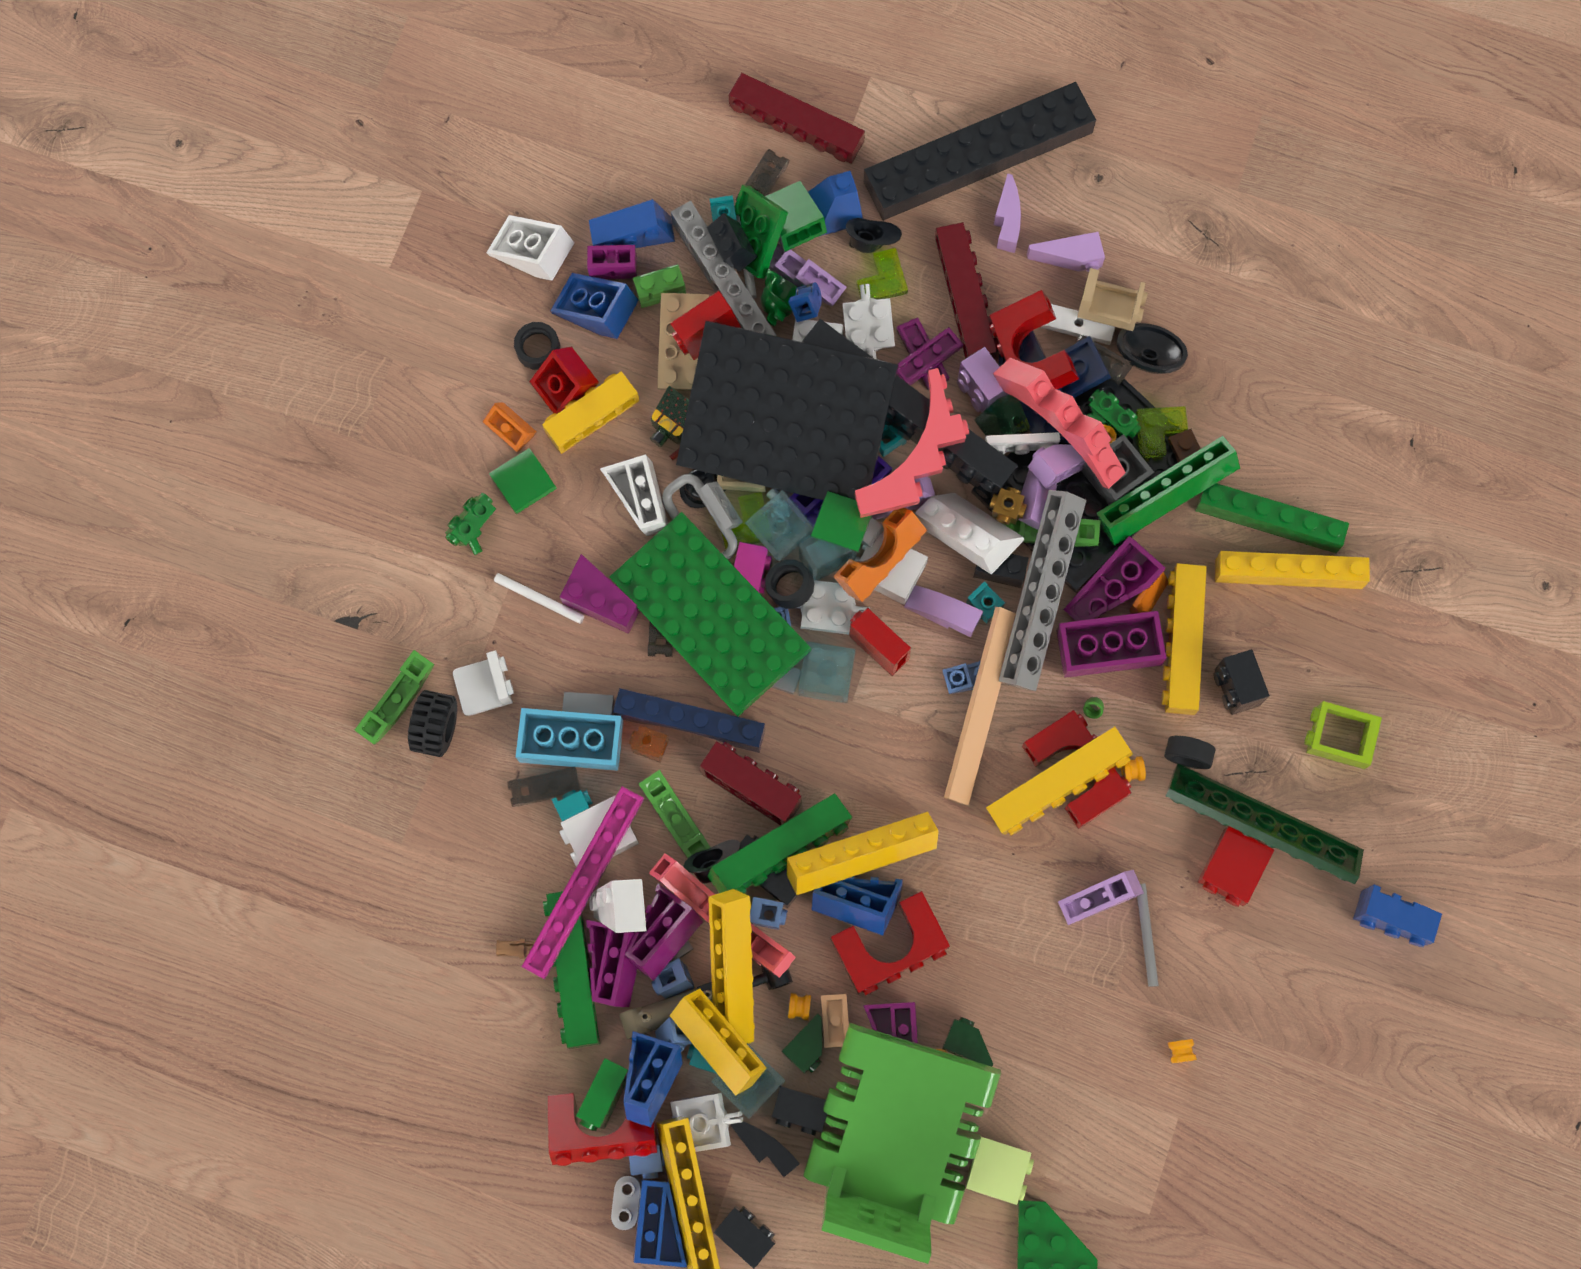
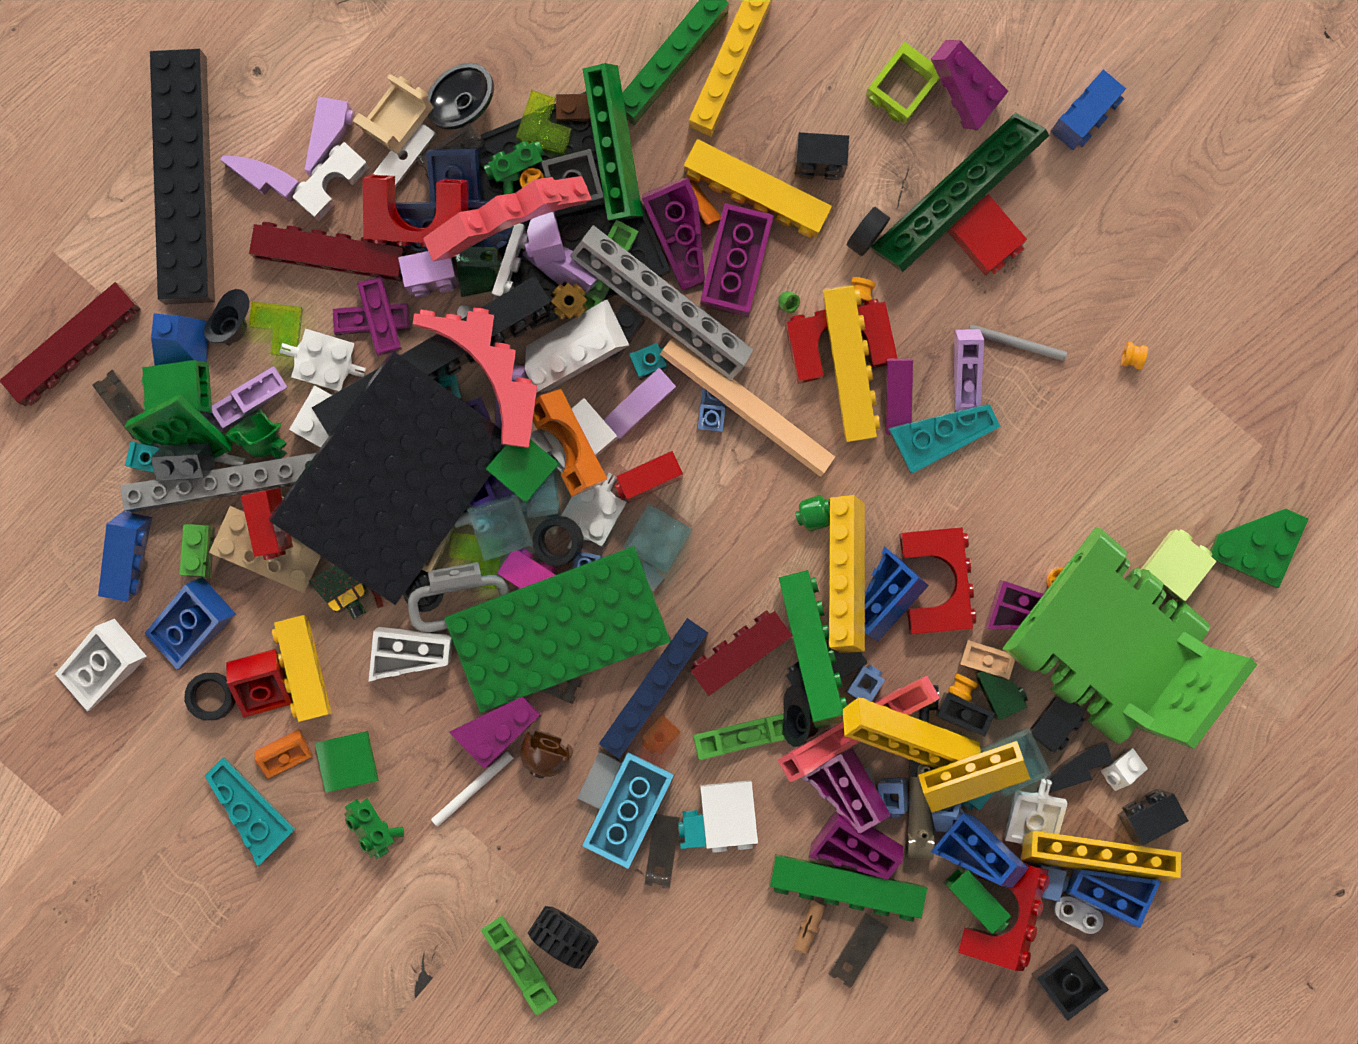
camera: 70 degrees left, 10 degrees up
(444, 424) = (252, 814): none -> teal wing
(483, 685) = (540, 874): white bracket -> none
(518, 1003) = (858, 949): none -> clear smoke plate
(558, 1216) = (1070, 981): none -> black brick
(582, 883) = (773, 847): dark pink tile -> none
(592, 646) = (544, 754): none -> reddish brown cylinder
(612, 261) = (152, 588): magenta brick -> none
(620, 905) = (814, 821): white wedge -> none
(774, 1016) = (964, 714): none -> black brick
(781, 1194) = (1124, 770): none -> white bracket
(807, 299) = (274, 410): blue leg -> none
(907, 803) = (814, 513): none -> green head
(967, 1042) = (1053, 547): dark green slope -> none
(1012, 262) = (342, 163): none -> white arch
(1026, 892) = (938, 436): none -> teal wing
(1048, 840) = (899, 392): none -> magenta tile
(1370, 790) = (970, 84): none -> magenta wedge

